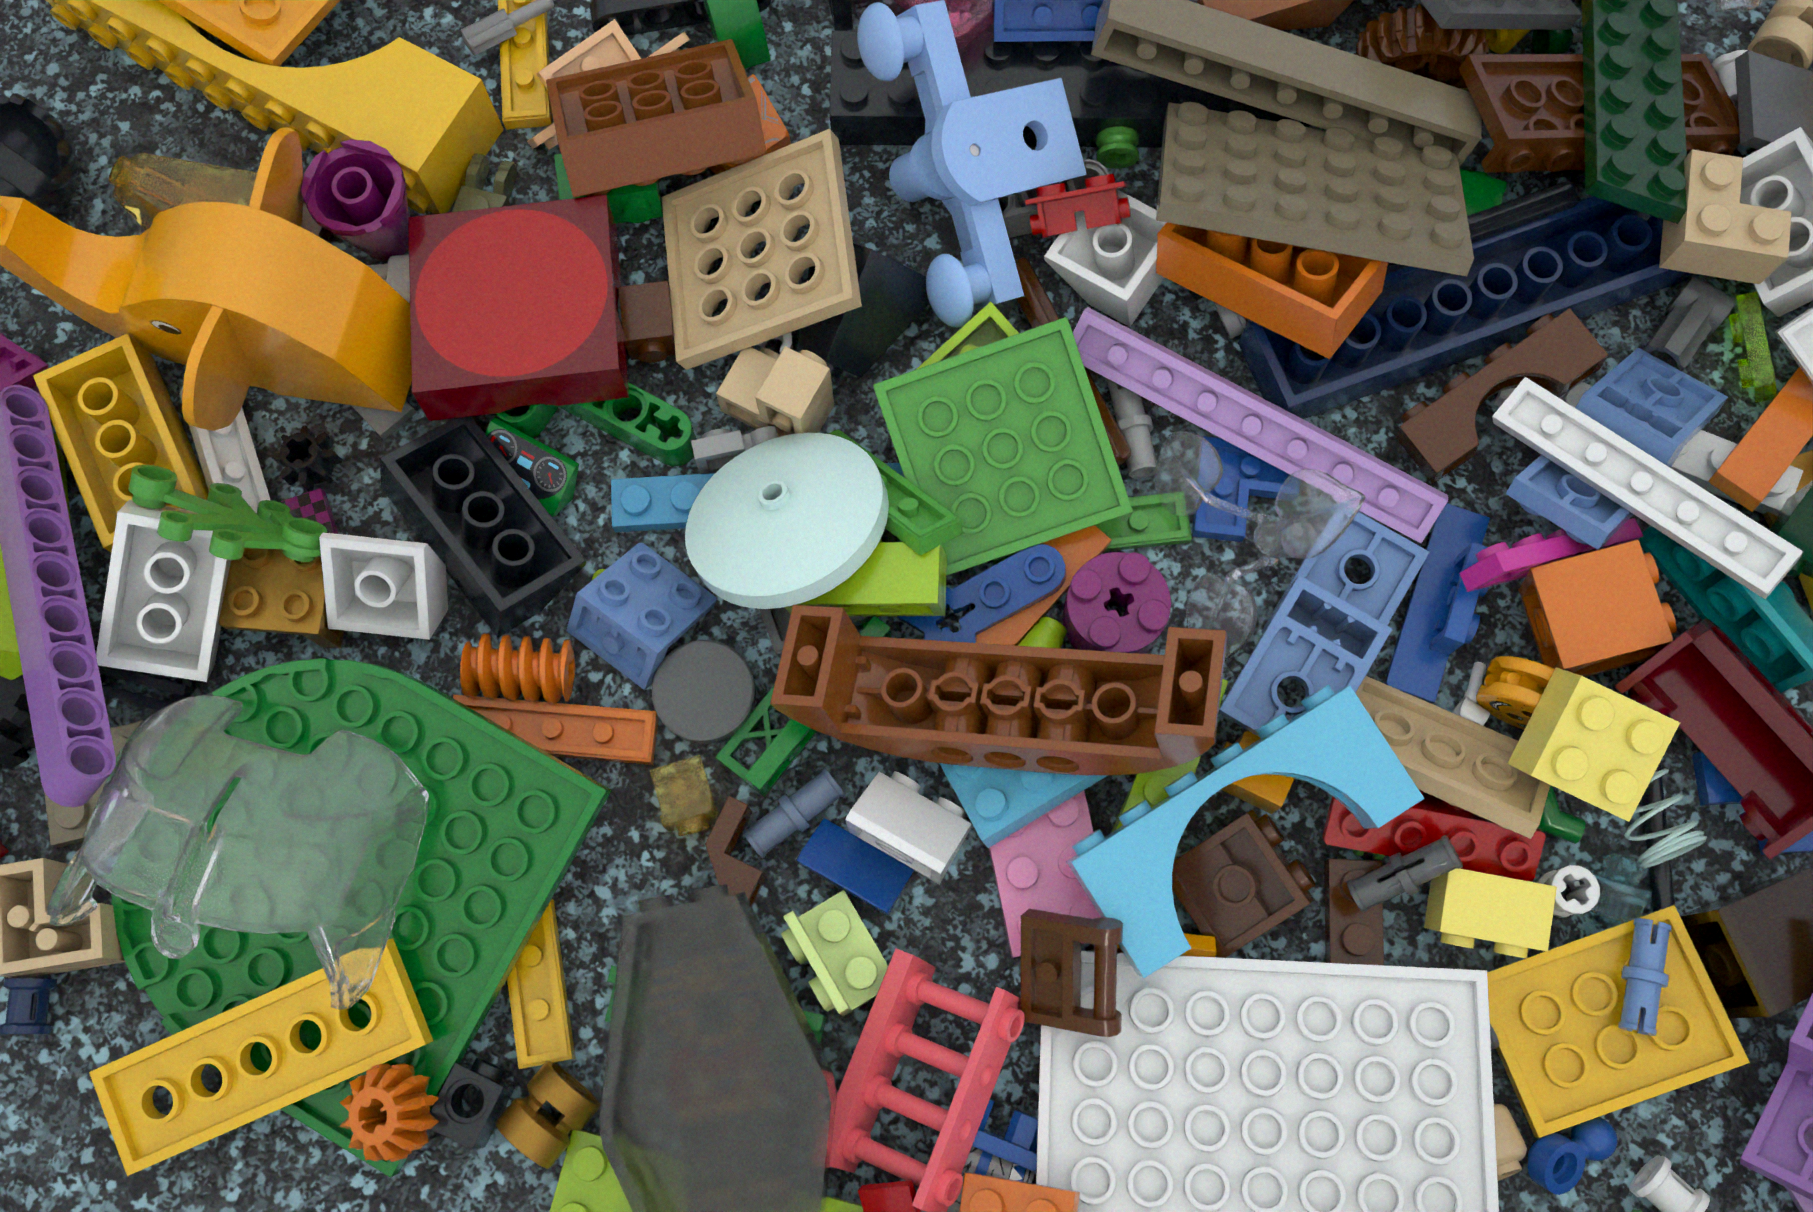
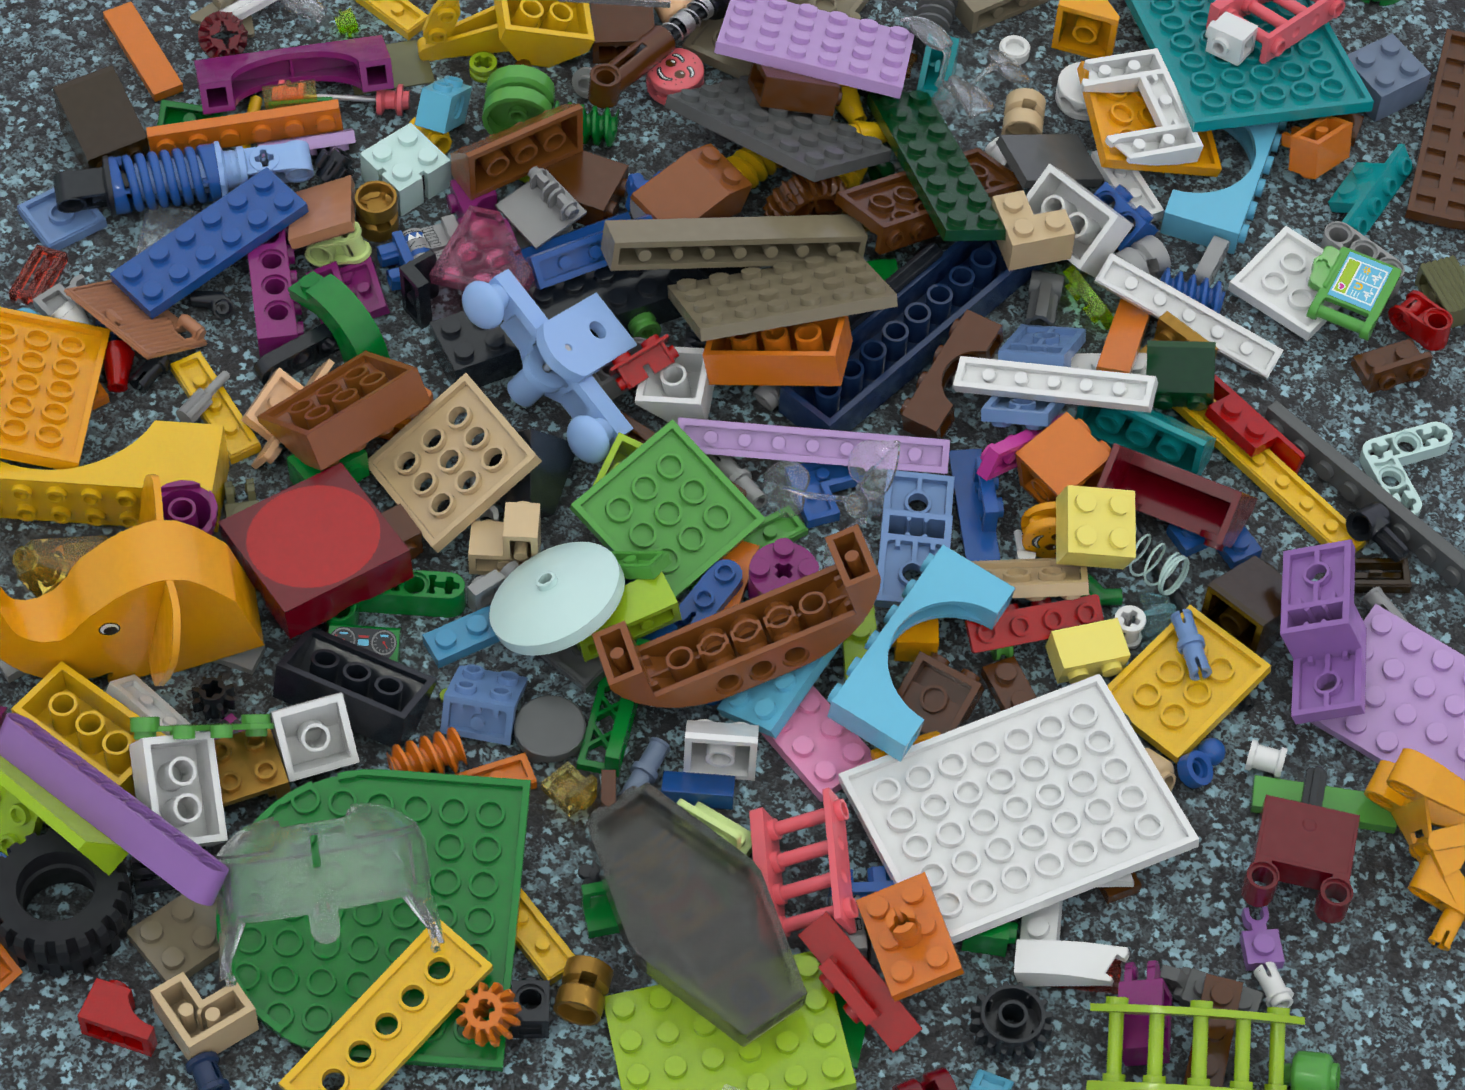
camera: 30 degrees left, 20 degrees down
(1054, 971) = (850, 769): reddish brown plate -> none
(1404, 874) = (1027, 646): dark grey pin -> none

